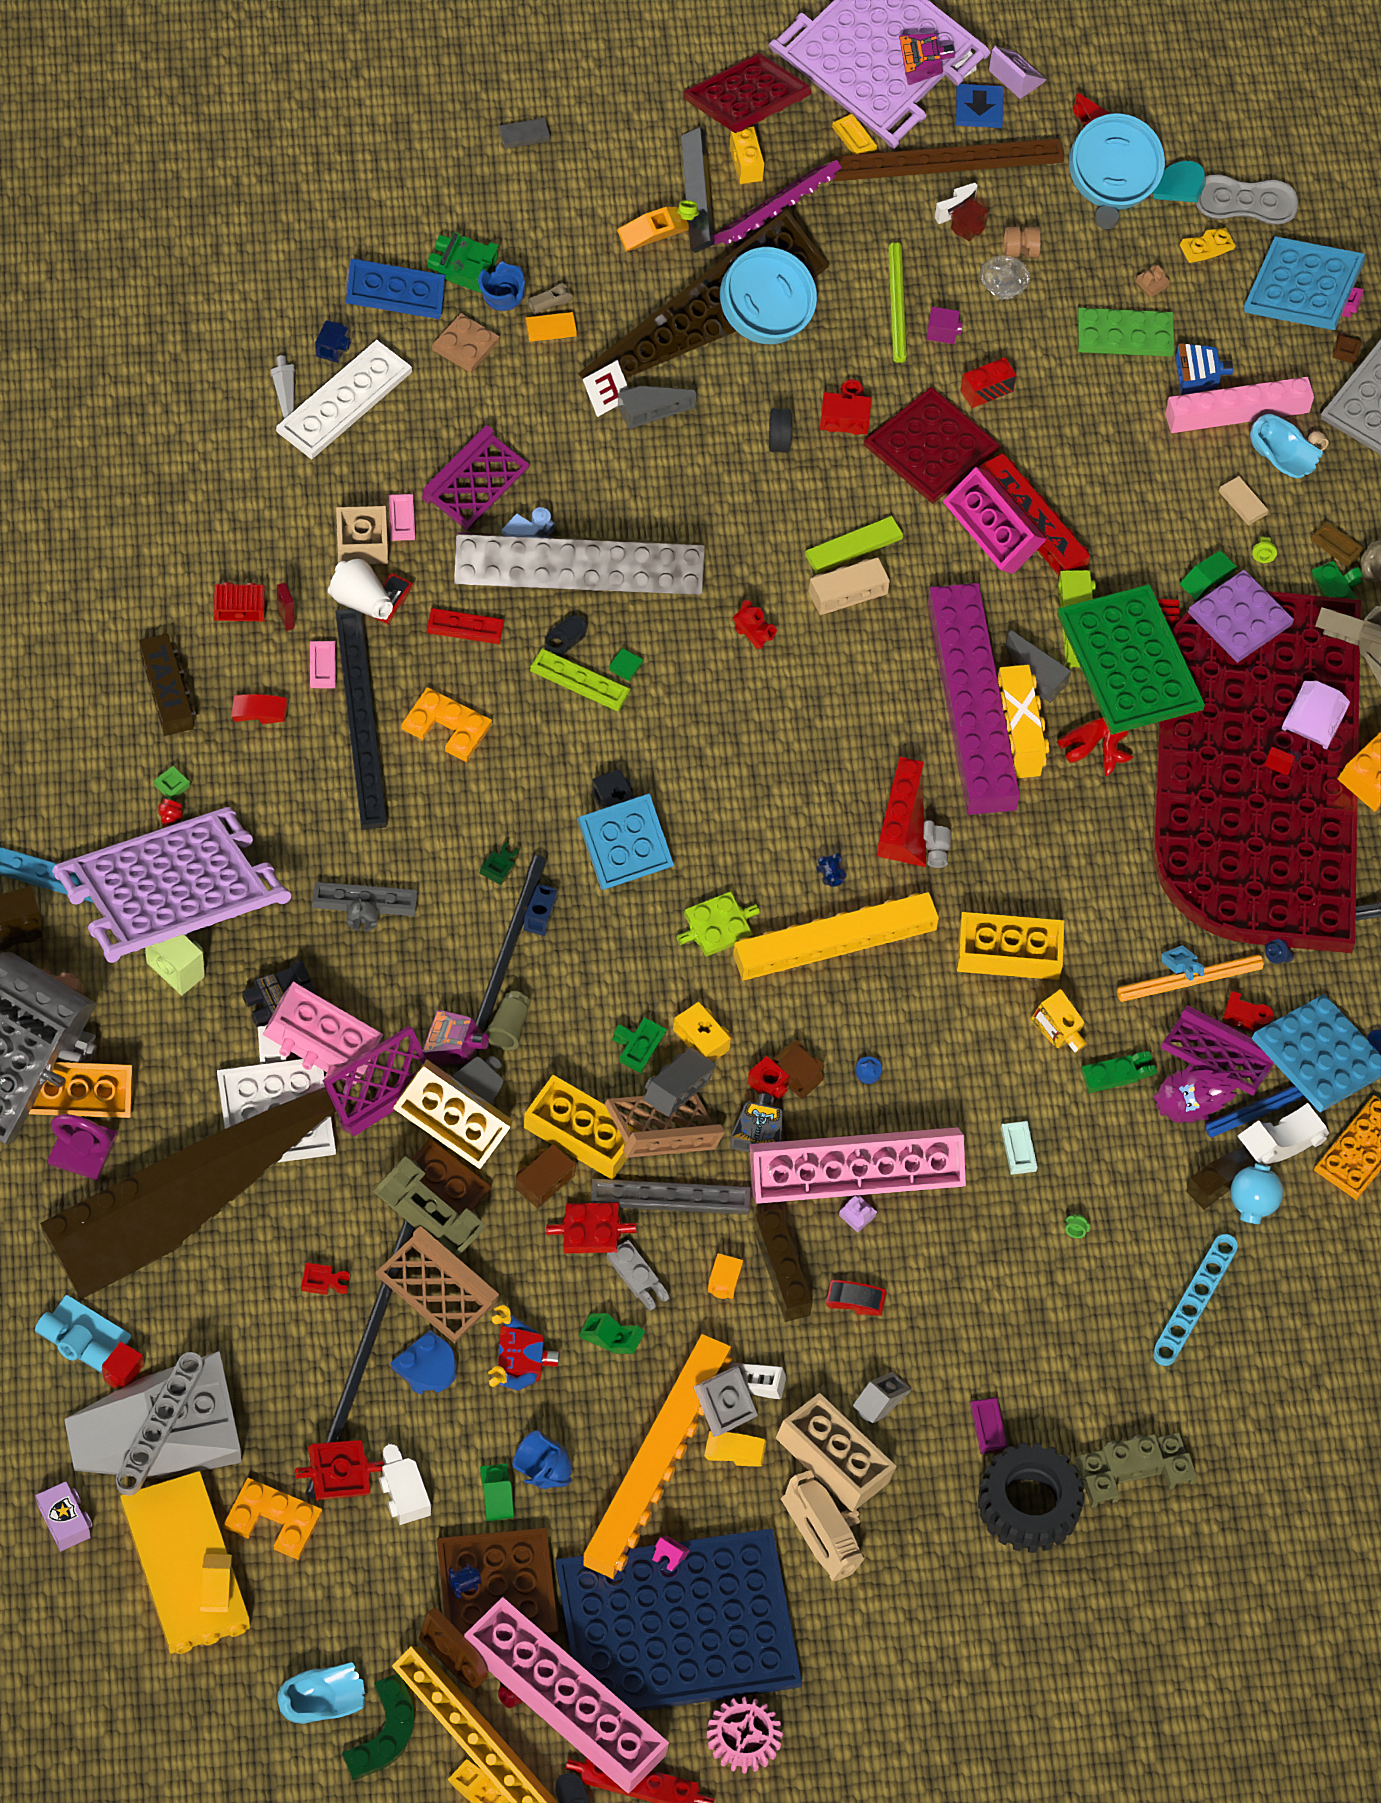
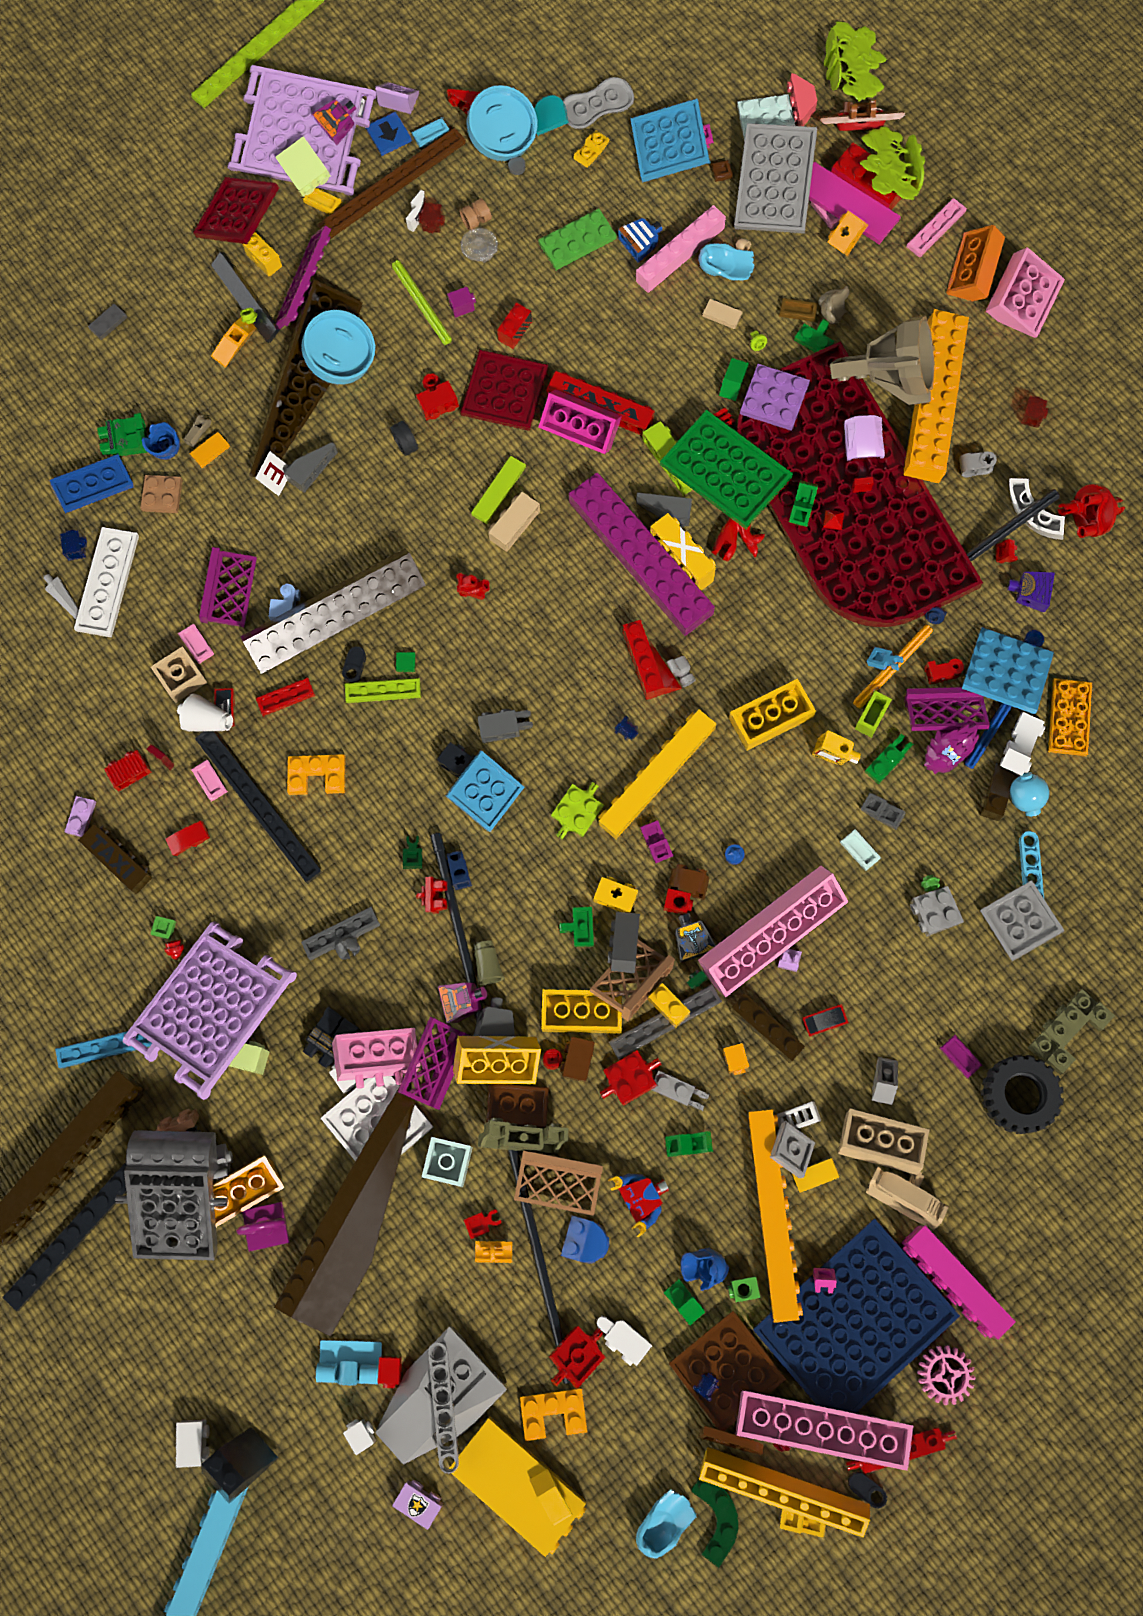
camera: 20 degrees left, 15 degrees up
(46, 1409) = (359, 1435): none -> white brick
(155, 621) = (80, 816): none -> lavender plate
(318, 1312) = (493, 1251): none -> light orange hips
(327, 1192) = (447, 1162): none -> light aqua brick
(493, 914) = (430, 895): none -> red hips
(515, 1159) = (552, 1059): none -> red tile
(579, 1524) = (753, 1292): none -> bright green brick
(685, 1175) = (669, 1005): none -> yellow brick
(692, 788) = (502, 725): none -> dark grey hinge
(736, 1166) = (697, 978): none -> dark green plate
(787, 1006) = (656, 841): none -> magenta slope
(821, 1642) = (957, 1282): none -> dark pink brick
(854, 87) = (303, 166): none -> yellowish green brick
(1028, 130) = (430, 133): none -> medium azure tile
(1063, 1259) = (936, 911): none -> light grey plate
(1072, 1121) = (882, 811): none -> dark grey slope
(1130, 1010) = (873, 714): none -> lime brick
(1153, 280) = (572, 193): medium nougat tile -> none
(1155, 1320) = (1022, 921): none -> light grey plate
(1200, 743) = (803, 503): none -> green slope
(1221, 781) = (833, 520): none -> red slope

